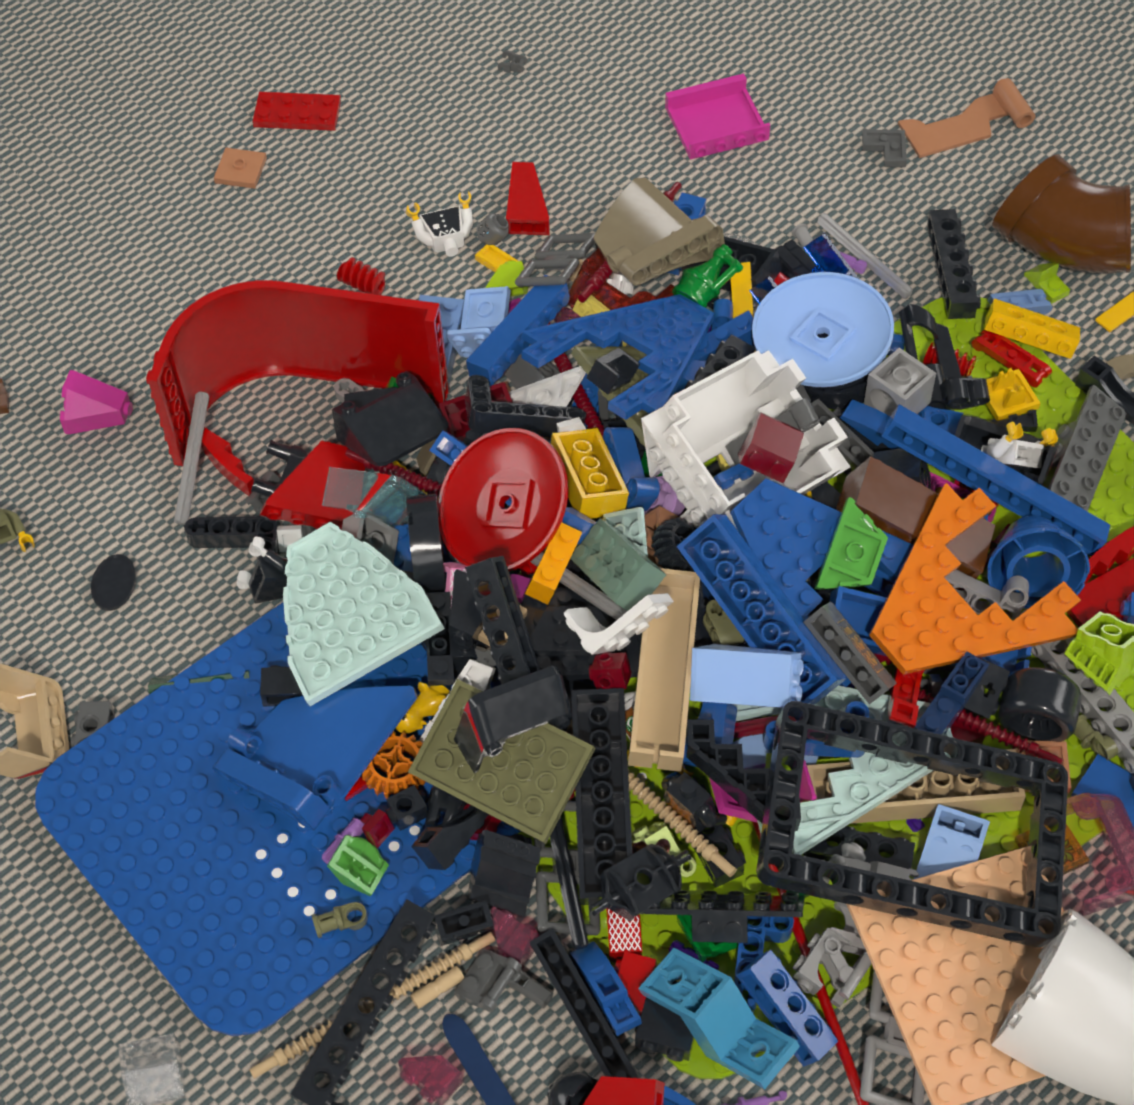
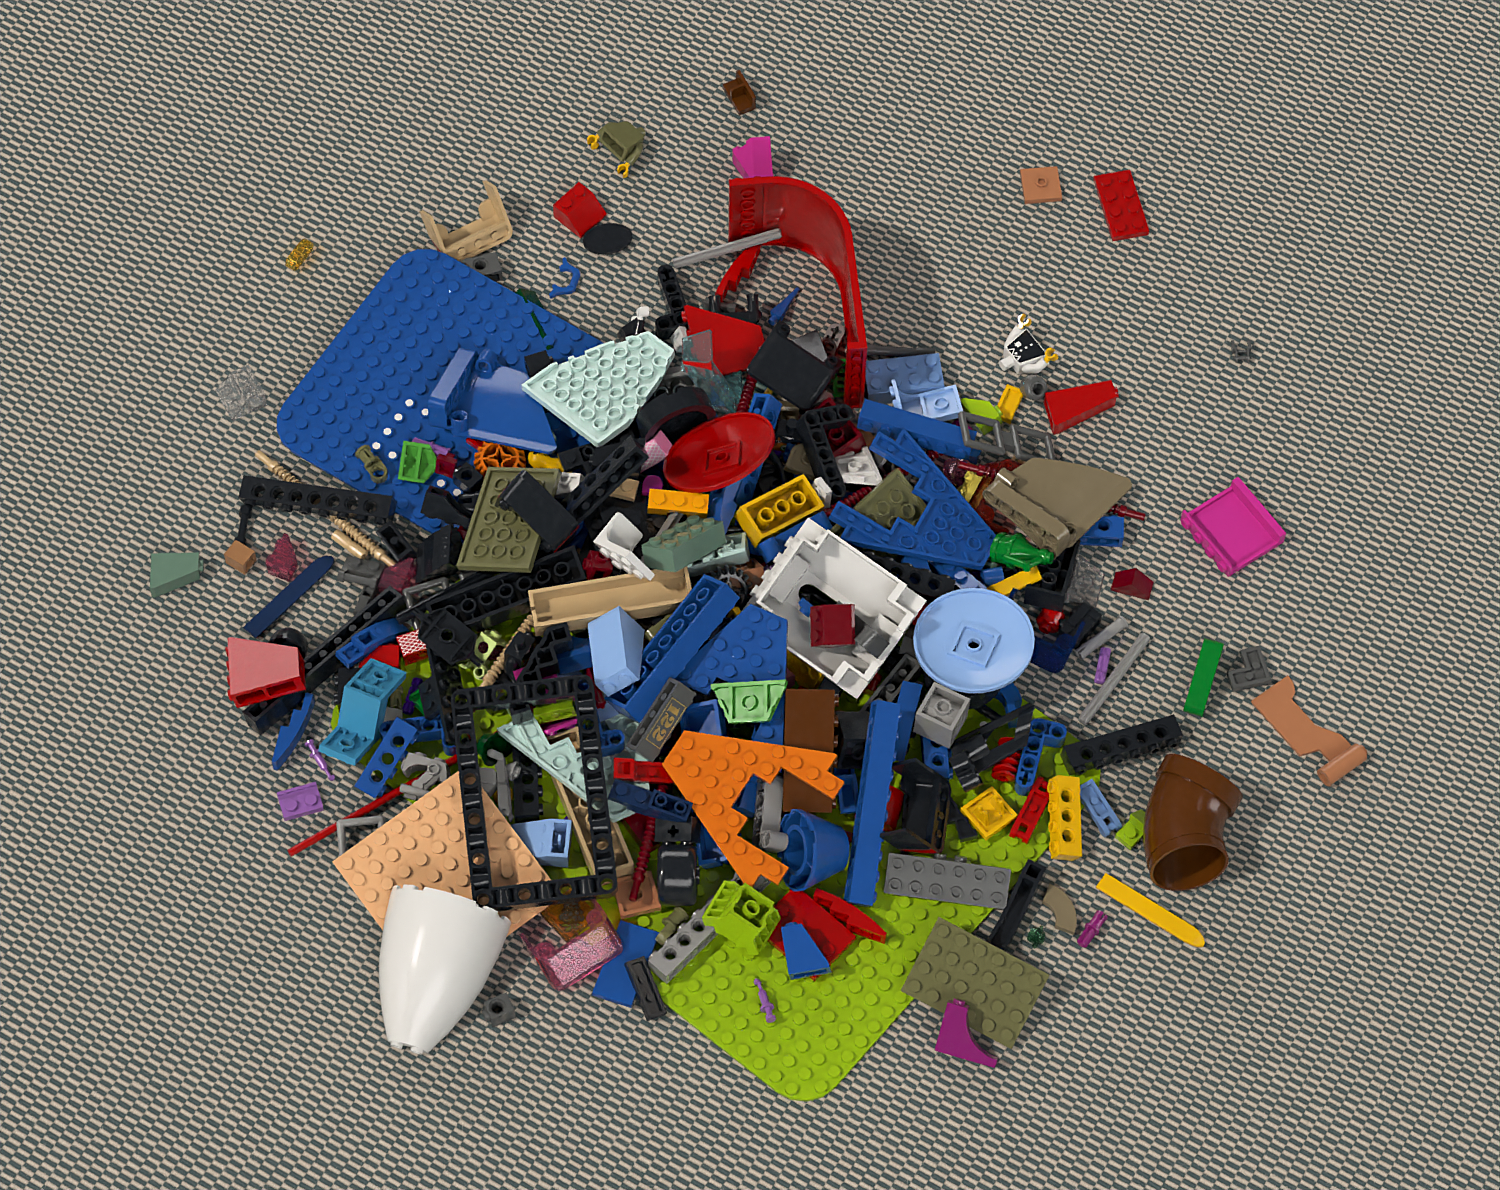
camera: 70 degrees right, 5 degrees up
(60, 600) = (578, 210): none -> red slope
(148, 628) = (573, 283): none -> blue helmet
(292, 433) = (780, 310): none -> blue piece
(361, 277) = (949, 309): red piece -> none
(613, 371) = (877, 499): black panel -> none
(754, 214) = (1132, 583): none -> dark red slope
(888, 176) = (1203, 677): none -> green beam
(960, 339) = (1033, 756): none -> blue beam
(1016, 452) = (909, 813): white torso -> none

